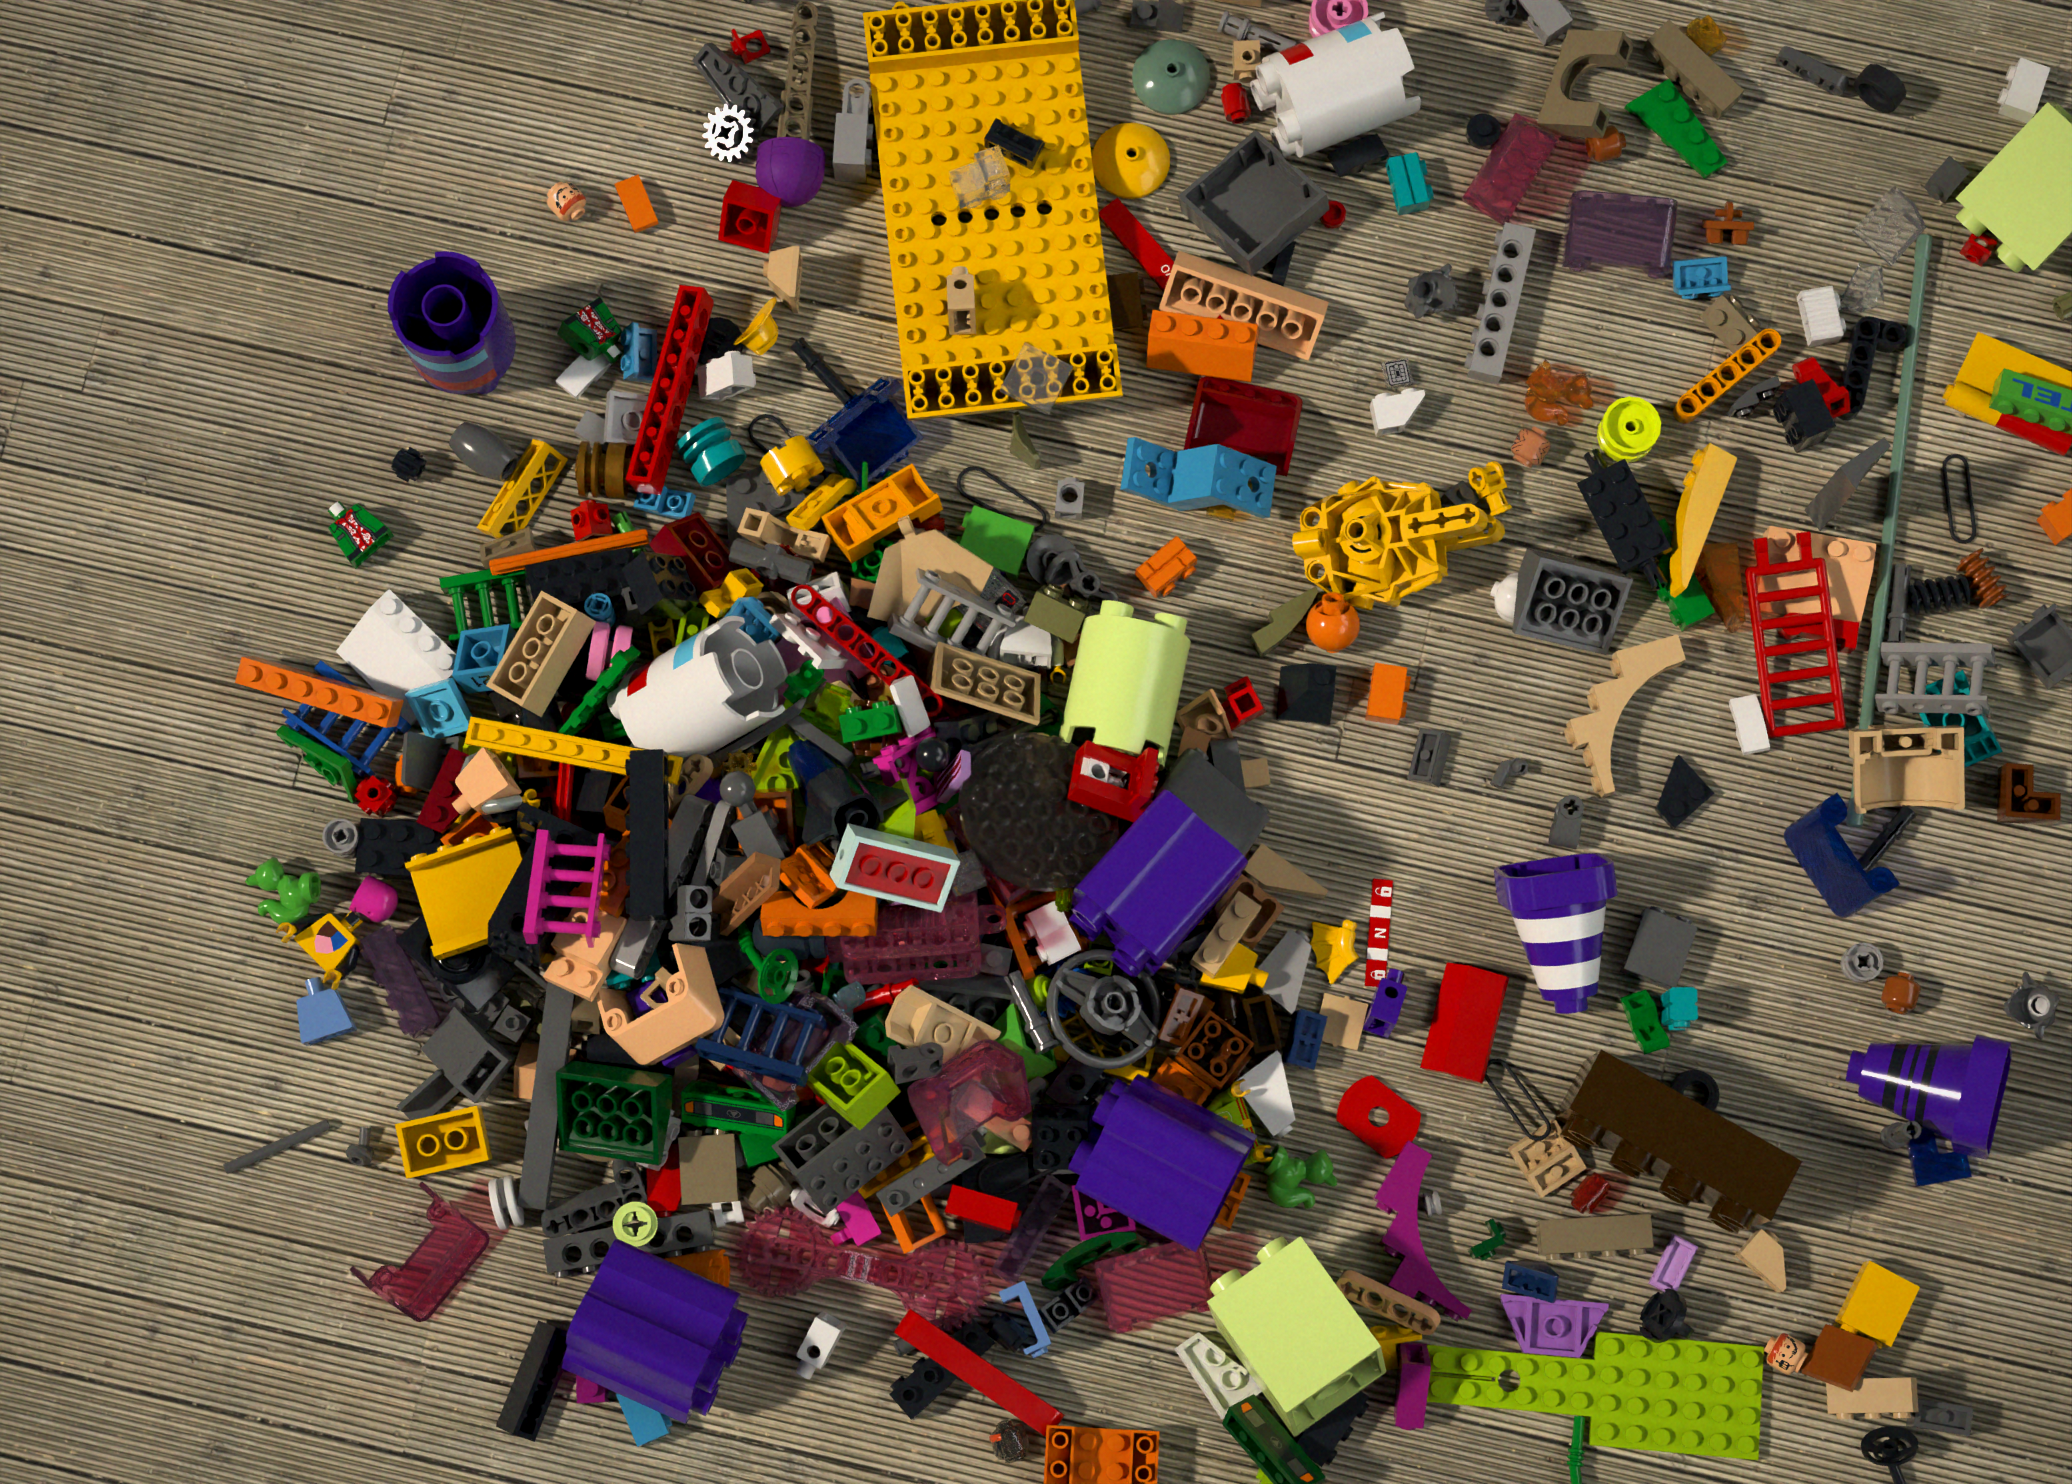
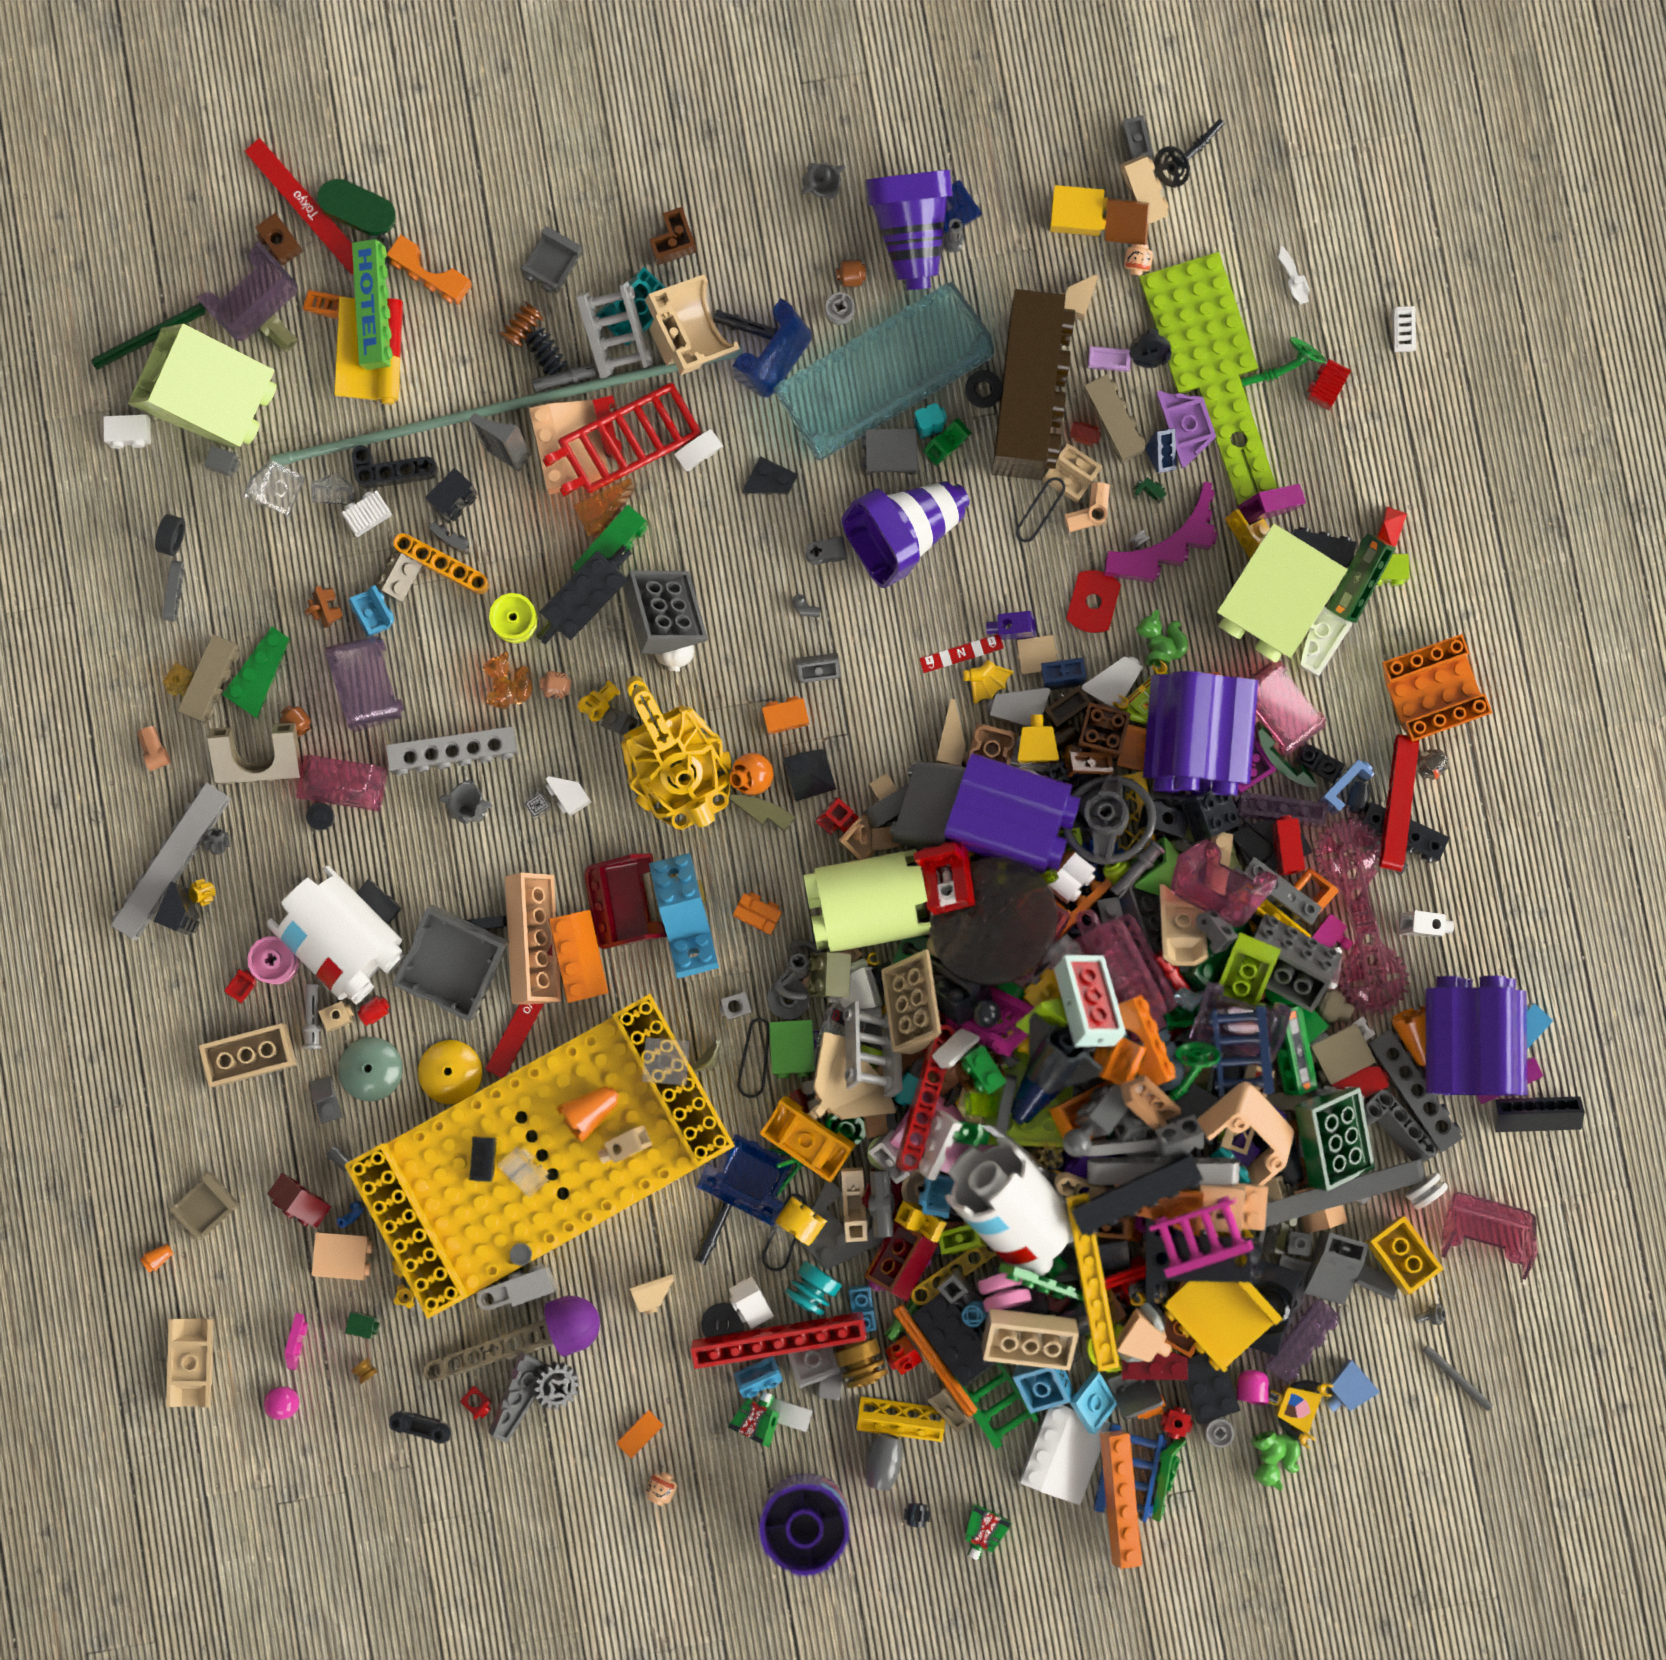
camera: 110 degrees left, 5 degrees up
(625, 1214) = (1413, 1092): yellowish green gear -> none
(660, 585) = (940, 1274): black brick -> none
(749, 217) = (618, 1339): red brick -> none
(762, 330) = (701, 1293): yellow piece -> none
(820, 501) = (816, 1189): yellow plate -> none
(890, 144) = (521, 1254): none -> dark grey piece
(953, 776) = (995, 992): lavender tile -> none
(1017, 274) = (588, 1111): none -> orange cone
(1125, 301) = (565, 1027): dark brown brick -> none
(1225, 935) = (1021, 753): tan brick -> none
(1334, 216) = (431, 898): red tile -> none
(1387, 1305) = (1224, 517): light nougat beam -> none
(1408, 183) = (385, 854): teal brick -> none
(1464, 1022) = (1002, 566): red slope -> none
(1485, 1145) = (1098, 502): none -> light nougat piece
(1596, 730) = (749, 555): tan arch -> none
(1696, 511) = (558, 545): yellow slope -> none
(1762, 982) = (885, 370): none -> clear light blue windscreen
(1830, 391) = (417, 503): red leg -> none
(1969, 497) = (460, 357): black piece -> none
(1977, 253) = (272, 419): red bracket -> none

